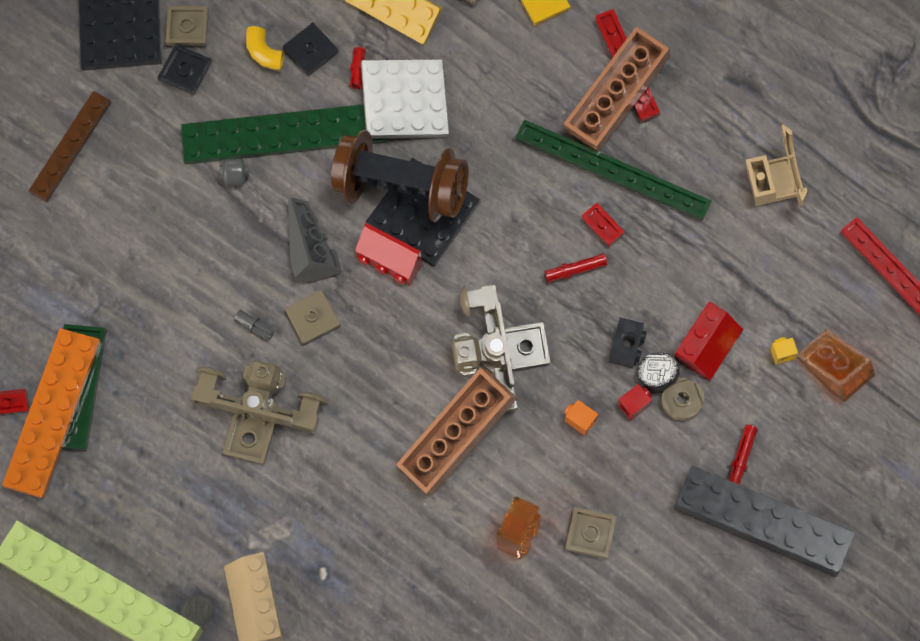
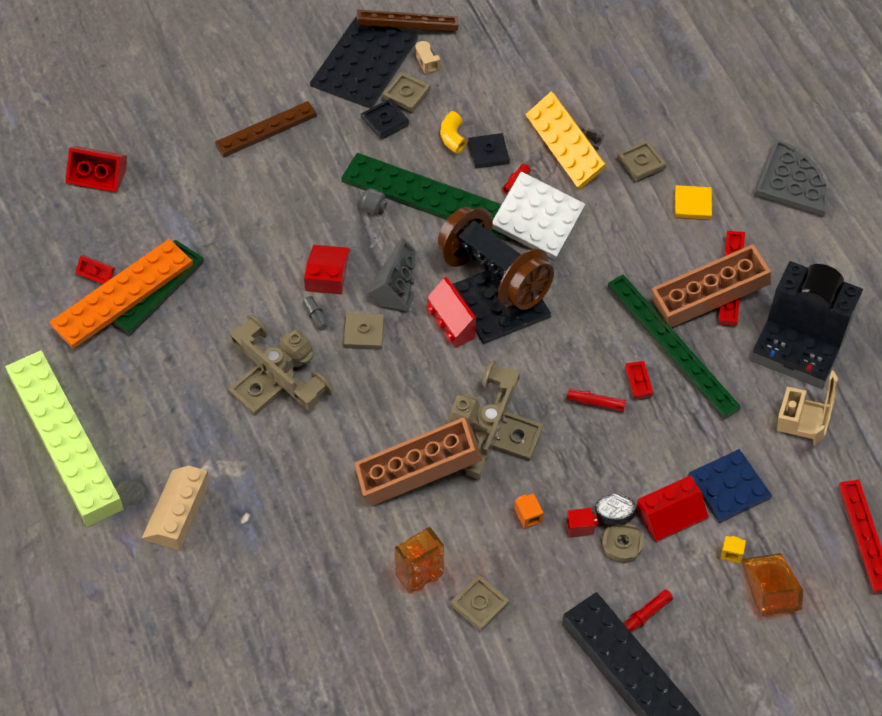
camera: 25 degrees right, 15 degrees down
(234, 270) = (326, 269): none -> red slope
(631, 331) = (605, 465): black brick -> none
(730, 85) = (807, 323): none -> black piece
(744, 286) = (730, 485): none -> dark blue plate

